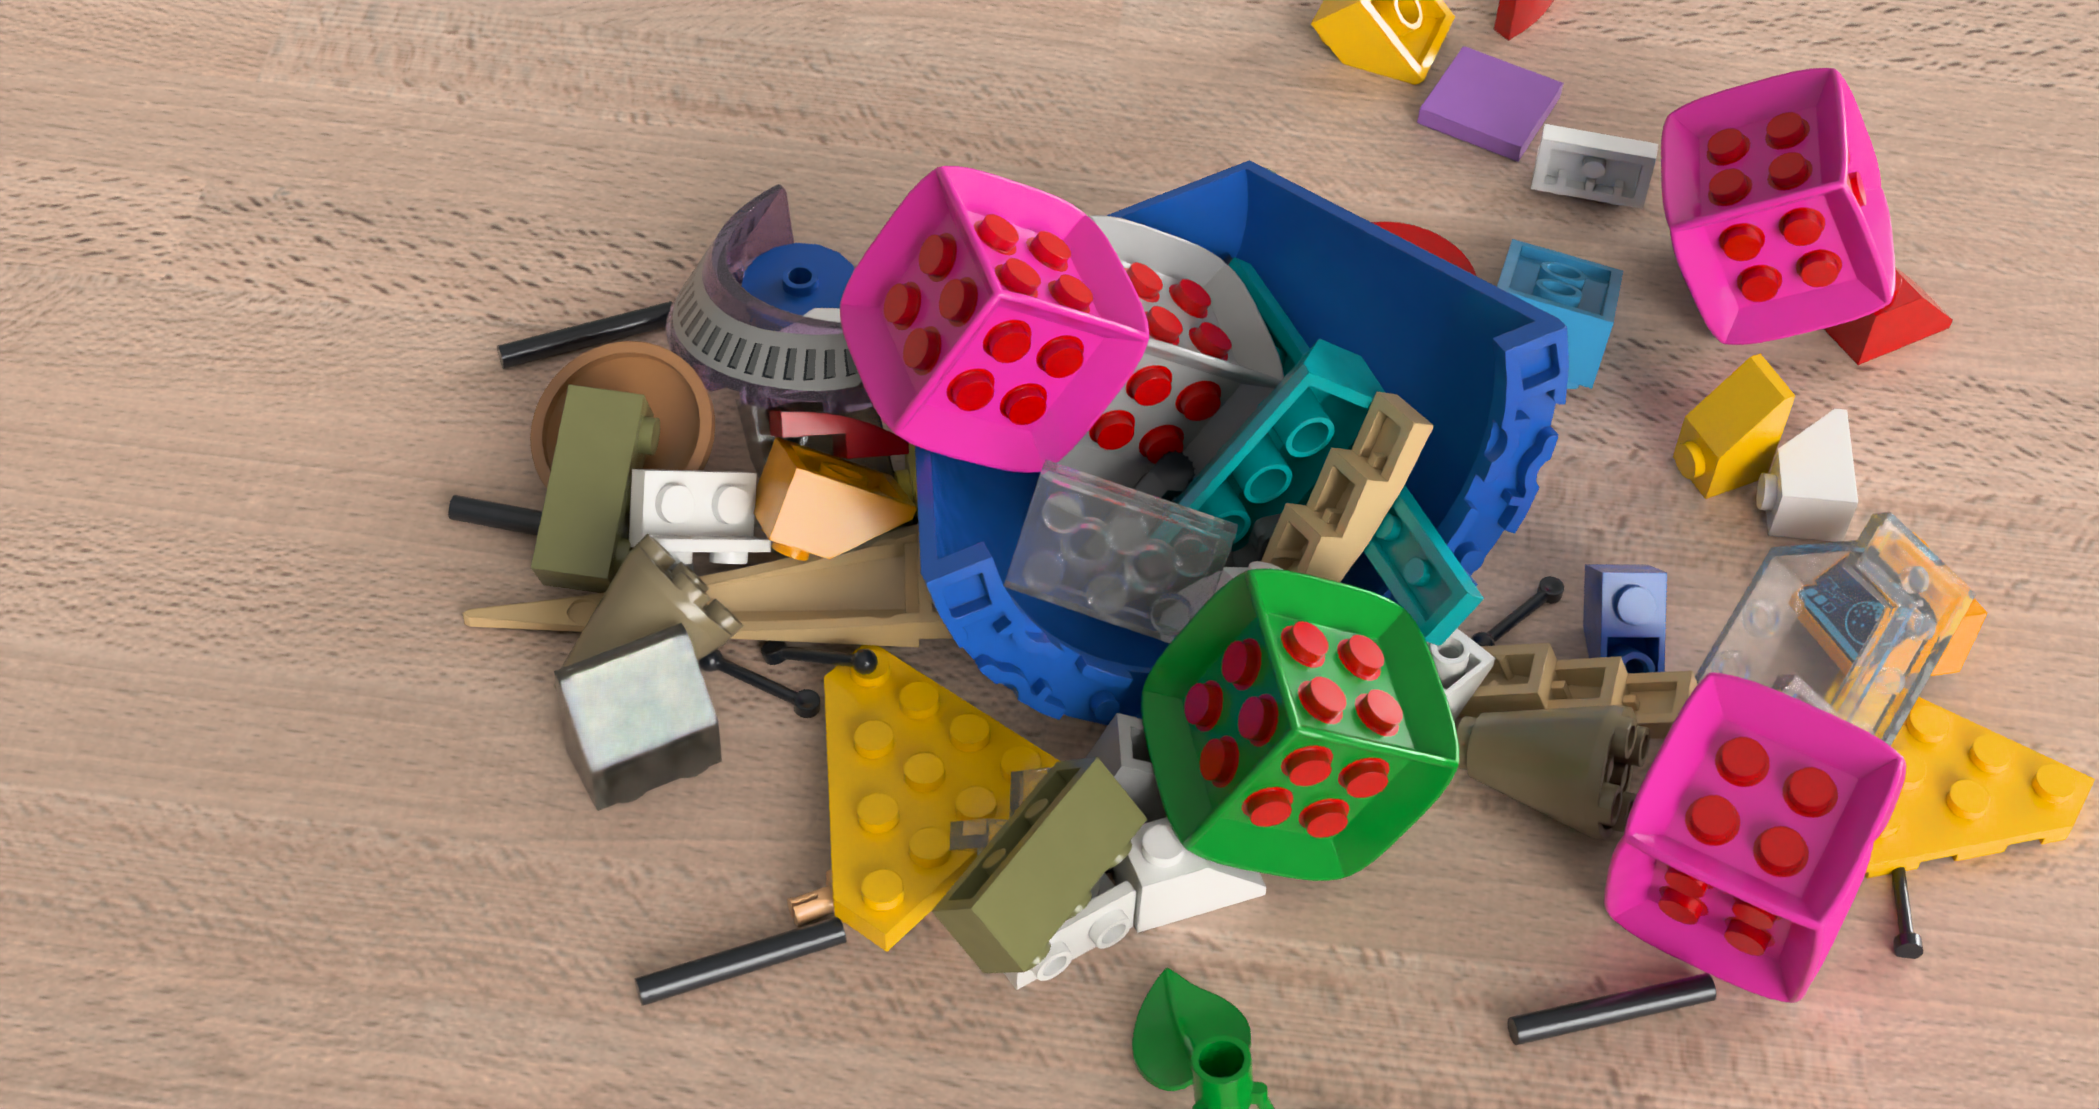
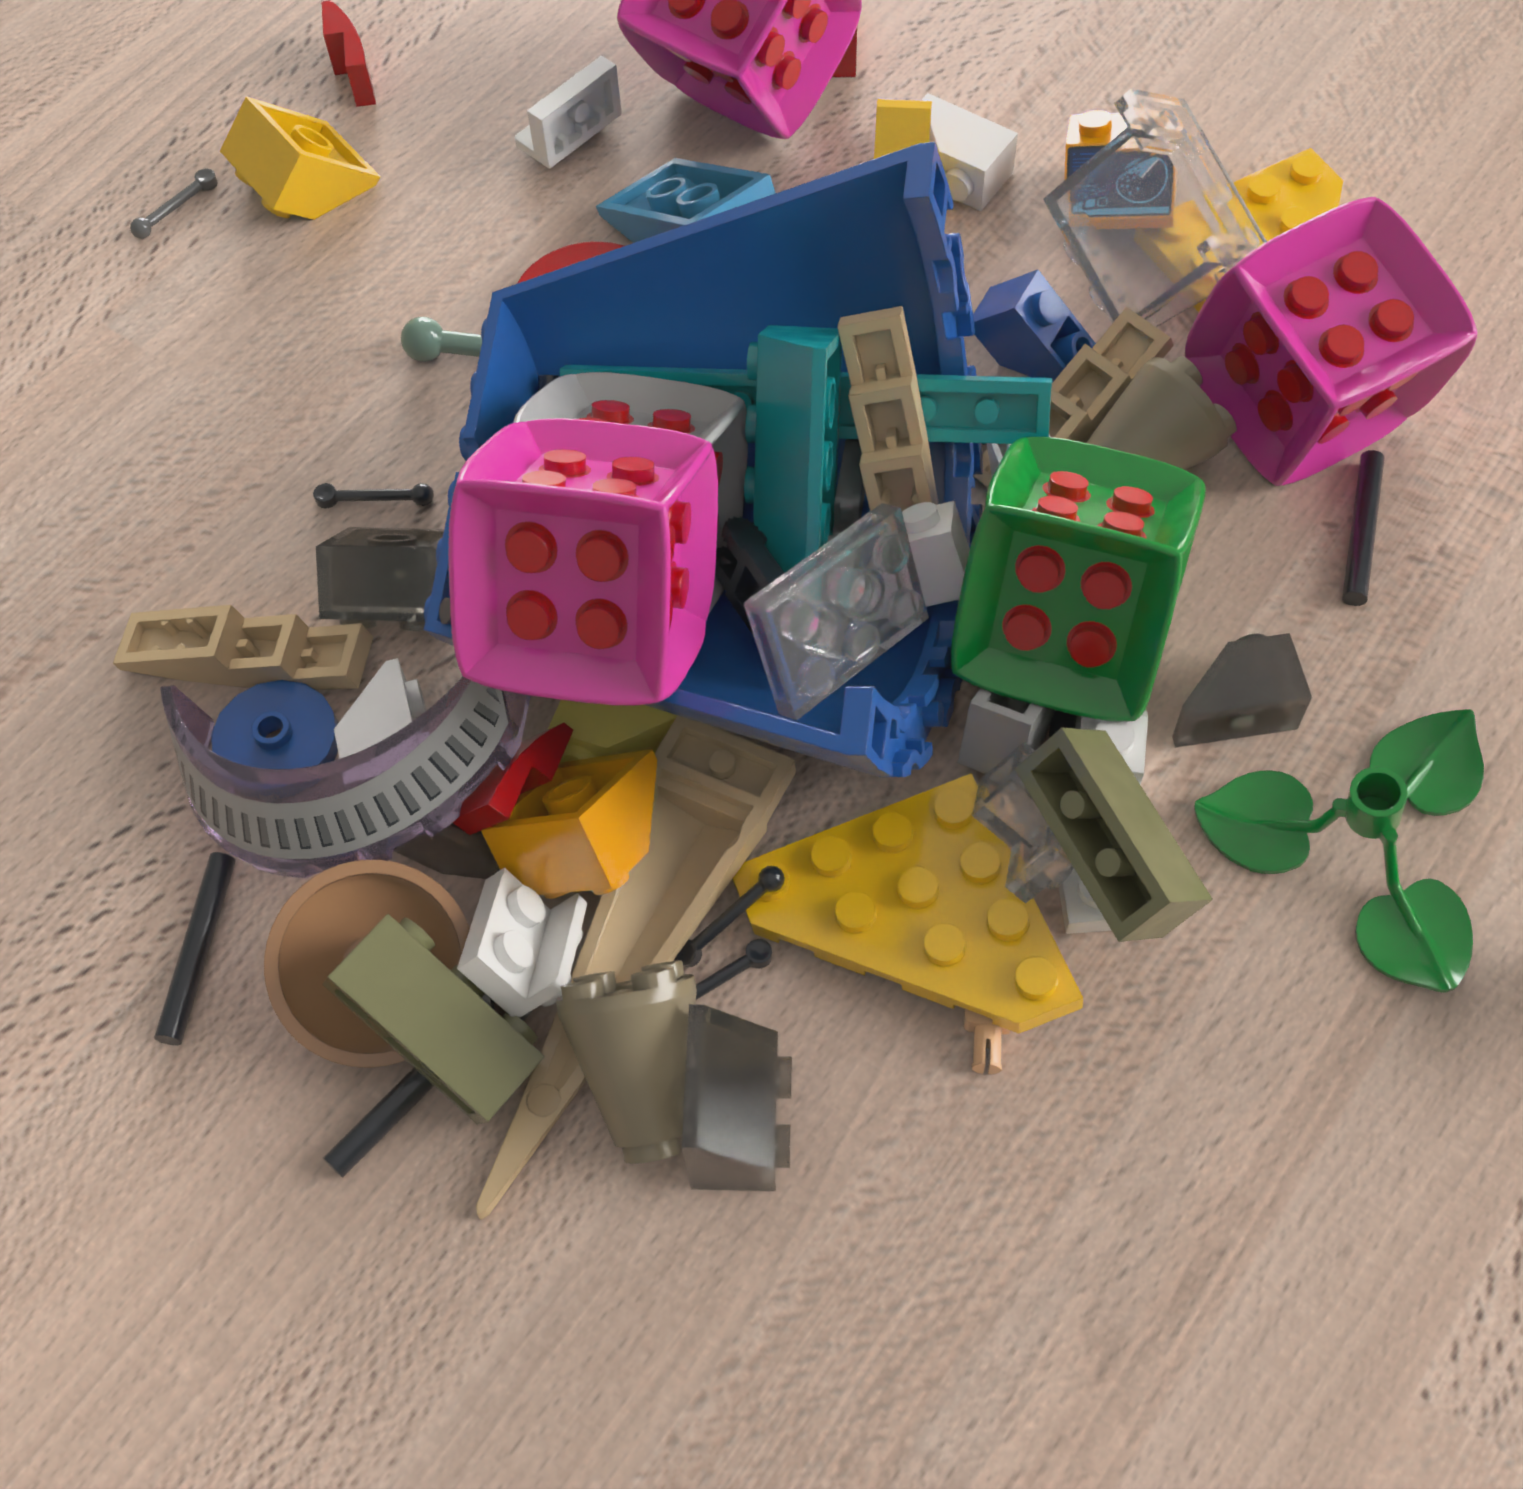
camera: 55 degrees left, 10 degrees up
(740, 960) = (1016, 1139): black bar -> none
(848, 198) = (238, 651): none -> tan slope
(1316, 959) = (1246, 692): none -> clear smoke slope
(1490, 103) = (440, 147): medium lavender tile -> none

